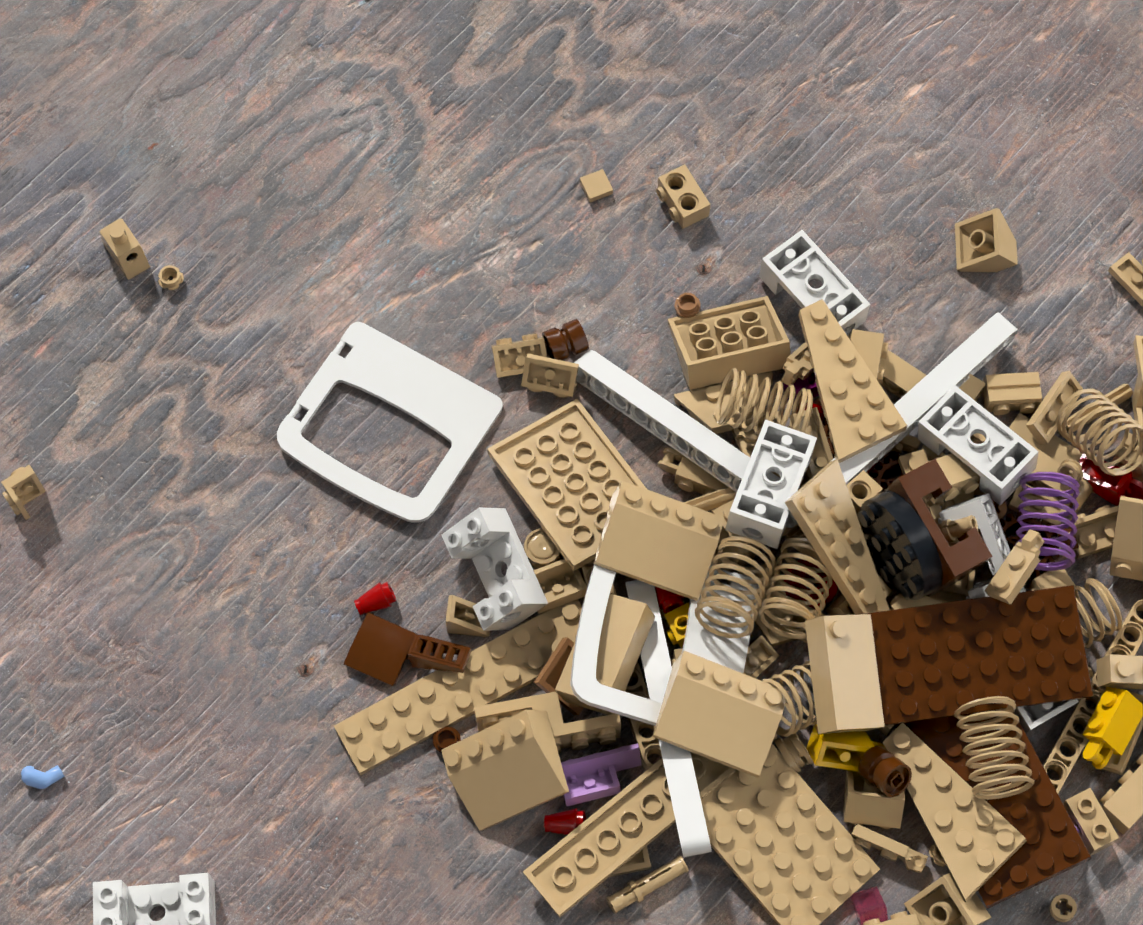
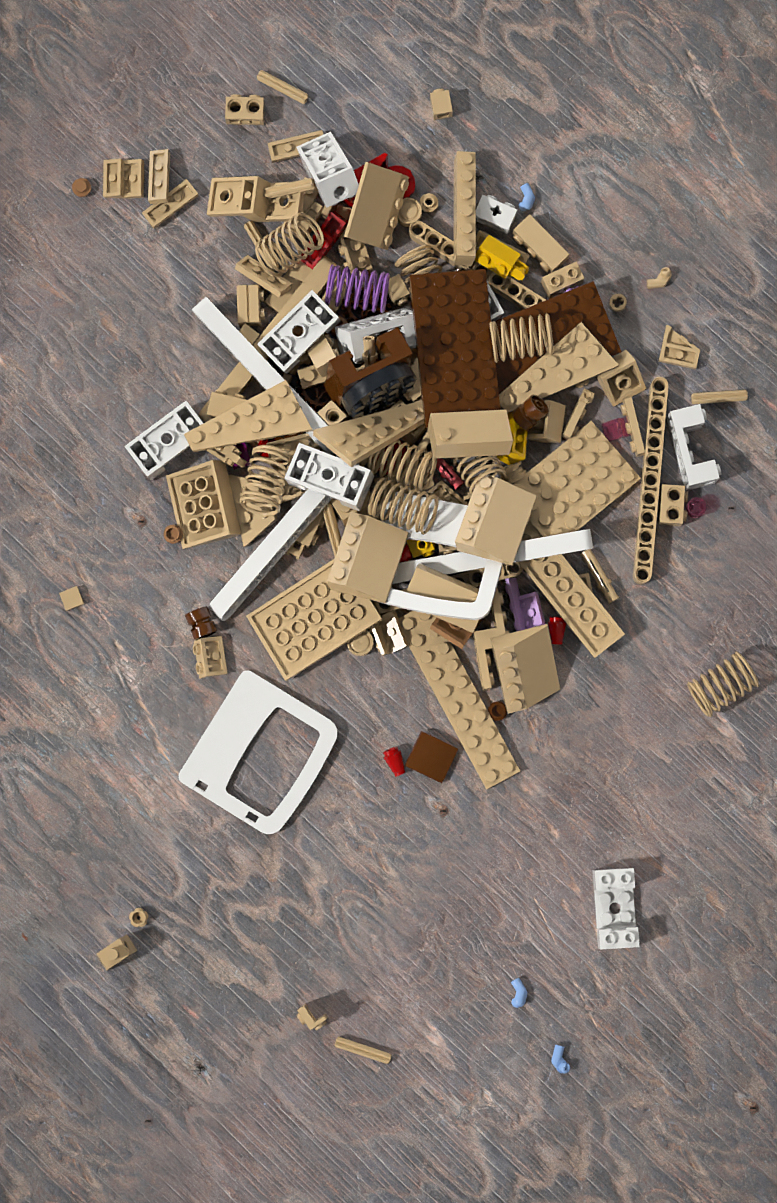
camera: 85 degrees left, 15 degrees up
(423, 646) = (444, 717): reddish brown slope -> none
(462, 618) = (410, 695): tan slope -> none
(490, 541) = (395, 663): white plate -> none
(550, 375) = (230, 634): tan bracket -> none
(687, 195) = (83, 528): tan brick -> none
(790, 661) = (456, 481): none -> coral pin
(985, 243) = (131, 315): tan slope -> none
(1016, 568) = (399, 312): tan hinge -> none
(1074, 465) = (317, 270): tan plate -> none

